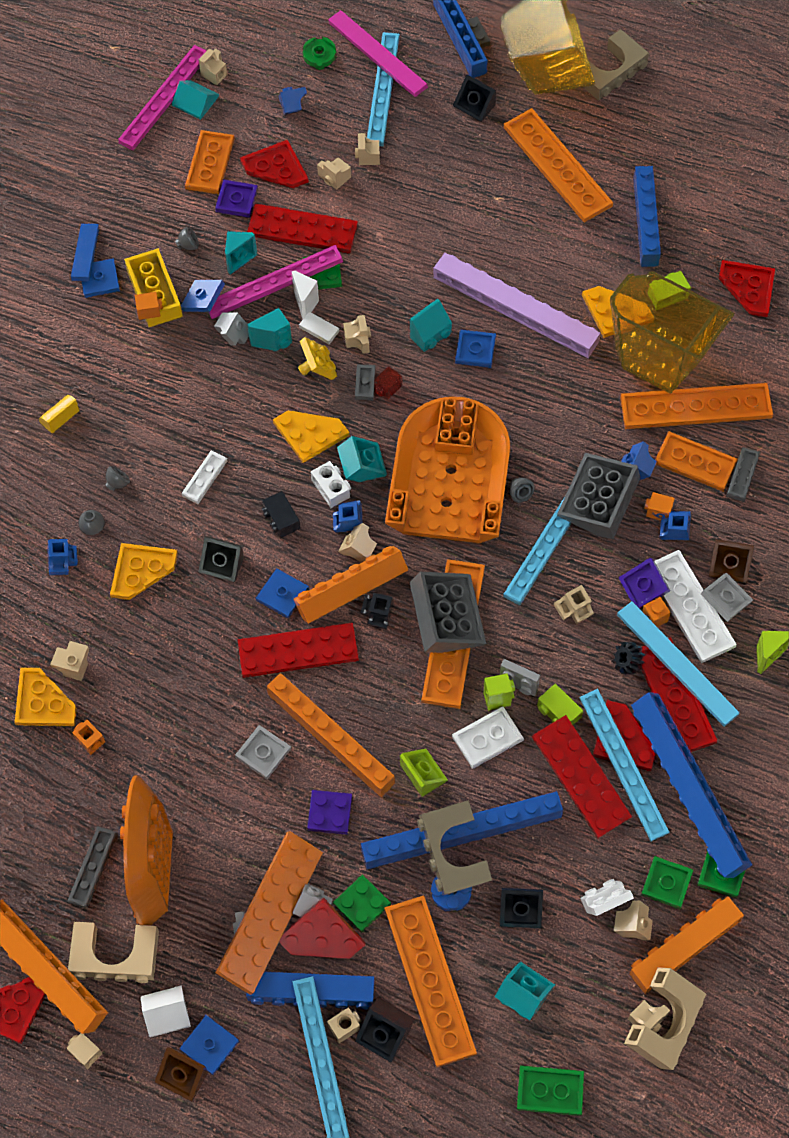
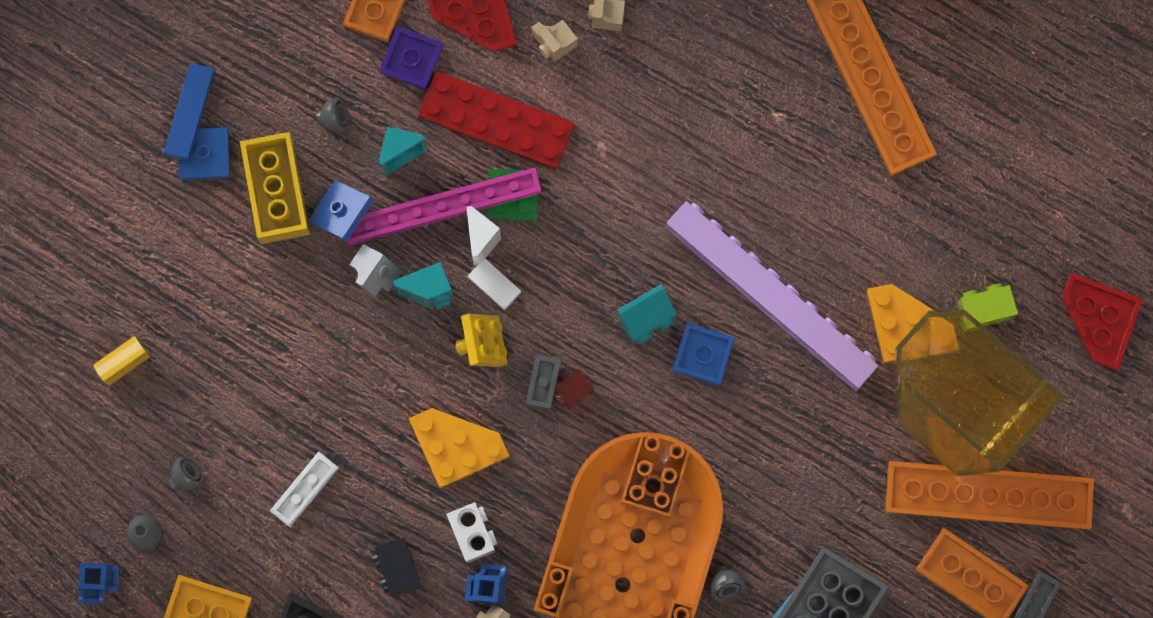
camera: 10 degrees right, 15 degrees up
(148, 305) = (261, 227): orange brick -> none
(357, 334) = (545, 306): tan brick -> none
(361, 459) = (519, 502): teal slope -> none
(640, 456) = (892, 570): blue brick -> none
(646, 216) = (980, 184): blue brick -> none

